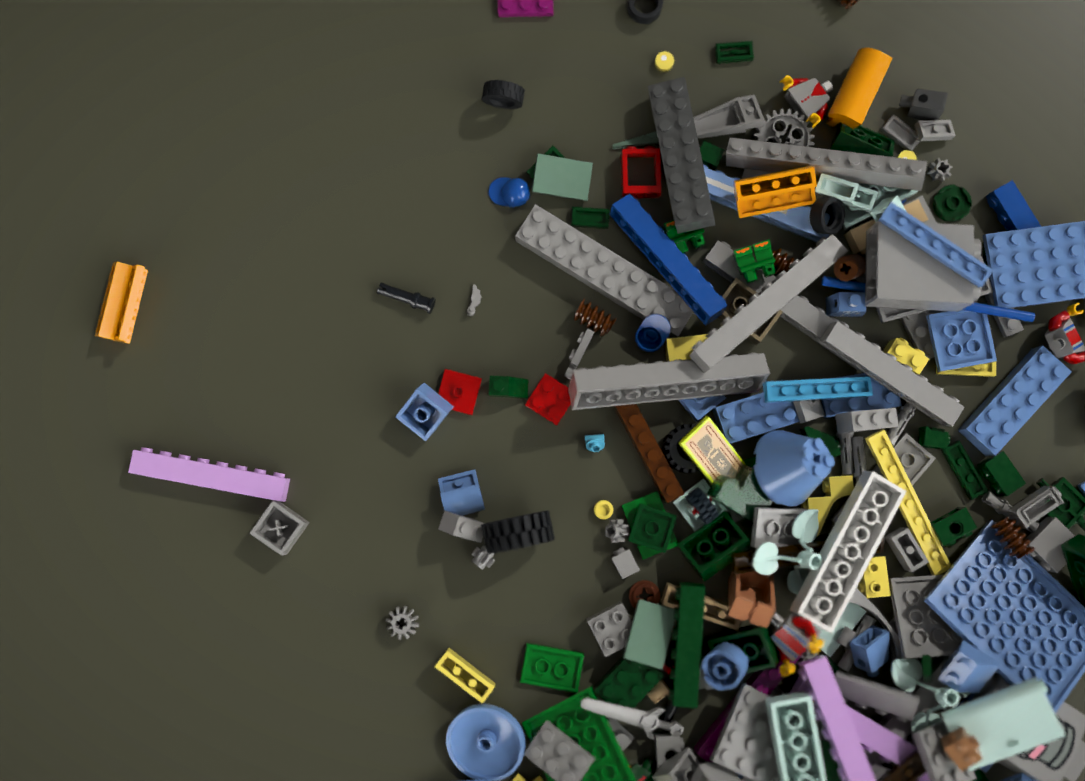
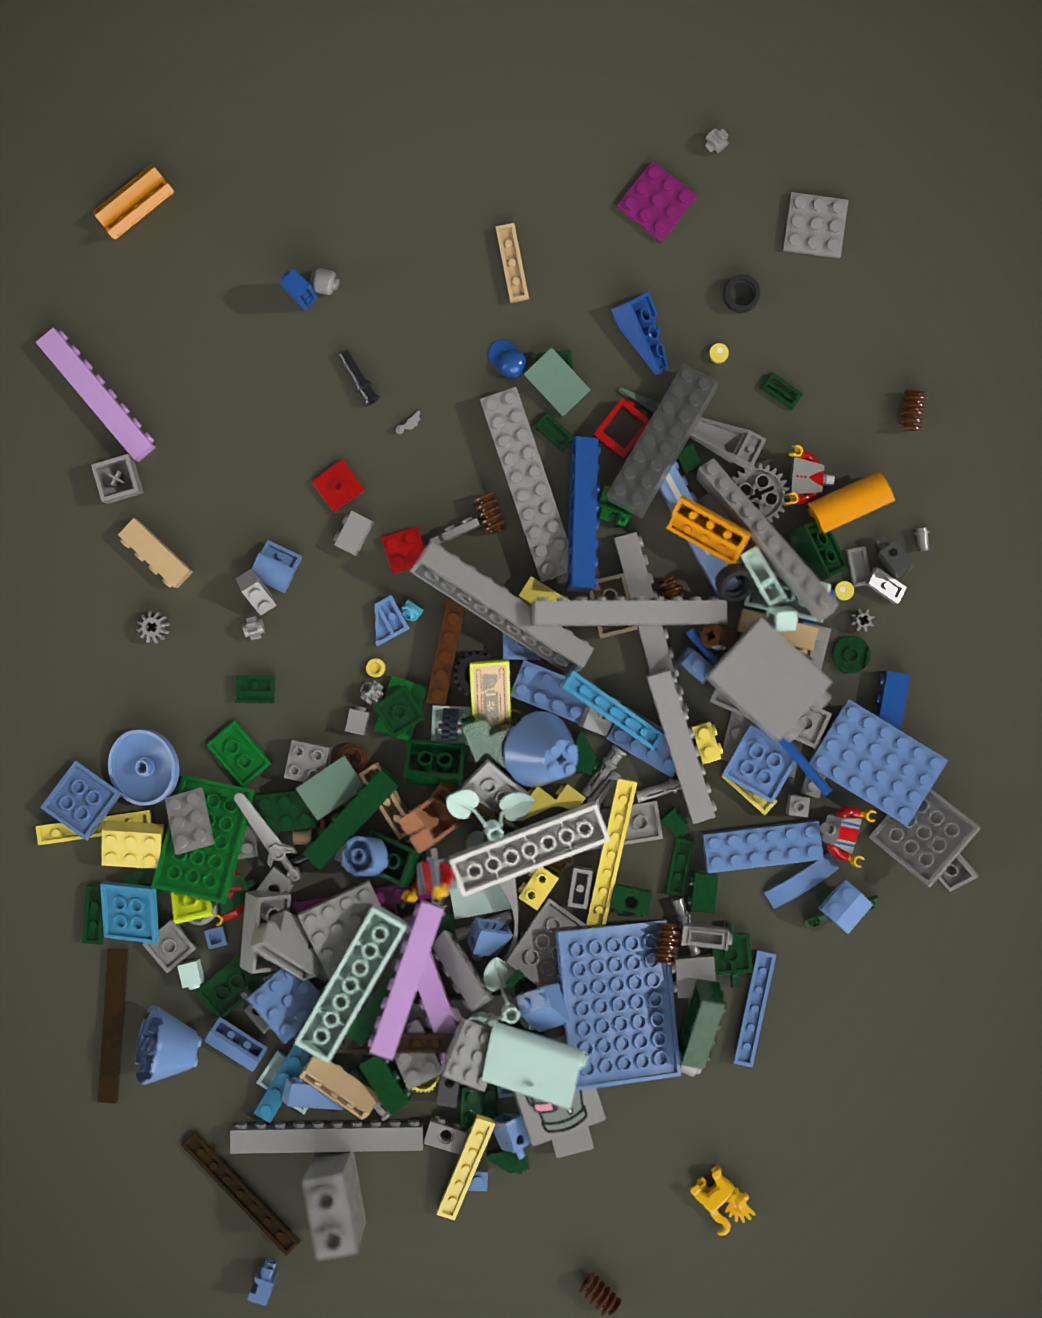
camera: 40 degrees right, 5 degrees up
(306, 264) = (298, 289): none -> blue brick
(320, 245) = (324, 281): none -> light grey head
(358, 562) = (155, 553): none -> tan brick
(424, 411) = (298, 479): medium blue brick -> none
(454, 117) = (512, 262): none -> tan plate
(465, 675) = (168, 704): light yellow brick -> none
(501, 418) = (353, 533): none -> light grey brick
(503, 94) = (563, 277): black tyre -> none
(508, 387) = (379, 513): dark green slope -> none
(518, 532) = (293, 630): black tyre -> none
(523, 604) = (255, 689): none -> dark green plate
(583, 464) = (388, 620): none -> medium blue wing
(584, 86) = (639, 326): none -> blue wedge
(653, 332) = (524, 562): blue cap -> none
(763, 260) = (641, 568): green hips -> none
(846, 636) = (479, 912): light grey hinge -> none
(866, 420) = (632, 765): light grey brick -> none
(930, 75) = (922, 539): none -> light grey pin
(935, 245) = (786, 672): medium blue plate -> none
(962, 748) = (487, 1056): medium nougat head -> none
(1014, 348) = (797, 805): none -> light grey brick
(1066, 406) = (801, 881): none -> medium blue slope

